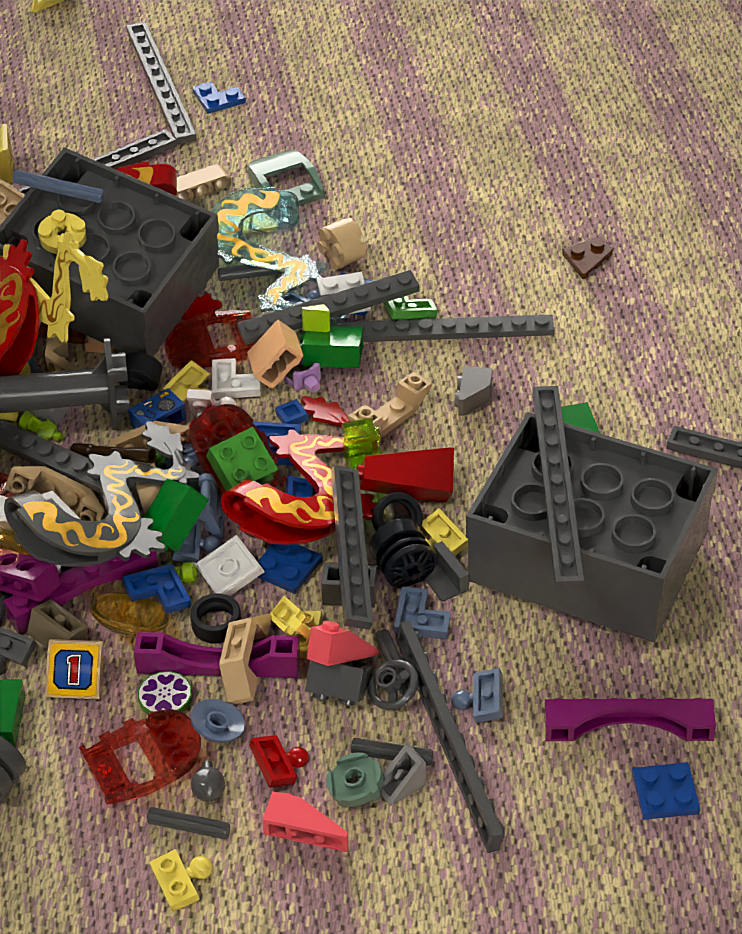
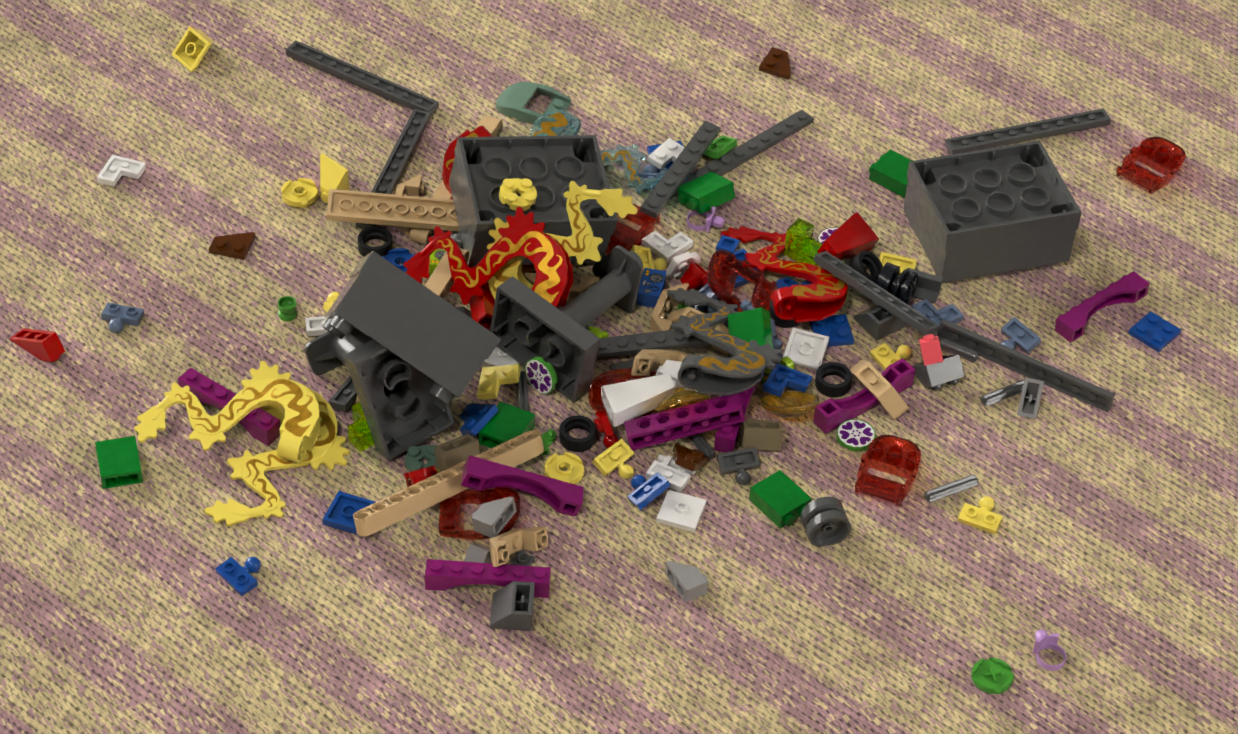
camera: 45 degrees left, 0 degrees up
(58, 186) = (485, 164): sand blue axle -> none
(74, 669) = (798, 448): slope -> none
(142, 455) = (693, 310): dark brown piece -> none
(207, 783) = (939, 461): dark grey piece -> none
(216, 101) = (415, 74): plate -> none
(217, 720) = (905, 429): sand blue dish -> none
(242, 459) = (755, 283): bright green brick -> none
(275, 354) = (684, 213): light nougat brick -> none
(275, 763) = (959, 430): red plate -> none
(290, 618) = (881, 353): light yellow hinge -> none
(299, 821) = (1008, 451): coral slope -> none
(316, 318) = (687, 178): lime slope -> none
(341, 243) = (632, 125): tan brick -> none
(358, 793) = (1013, 424): sand green plate -> none
(391, 682) = (970, 350): dark grey piece -> none
(409, 396) = (783, 206): tan slope -> none
(474, 389) = (812, 175): light grey slope -> none
(557, 488) = (978, 191): dark grey plate -> none

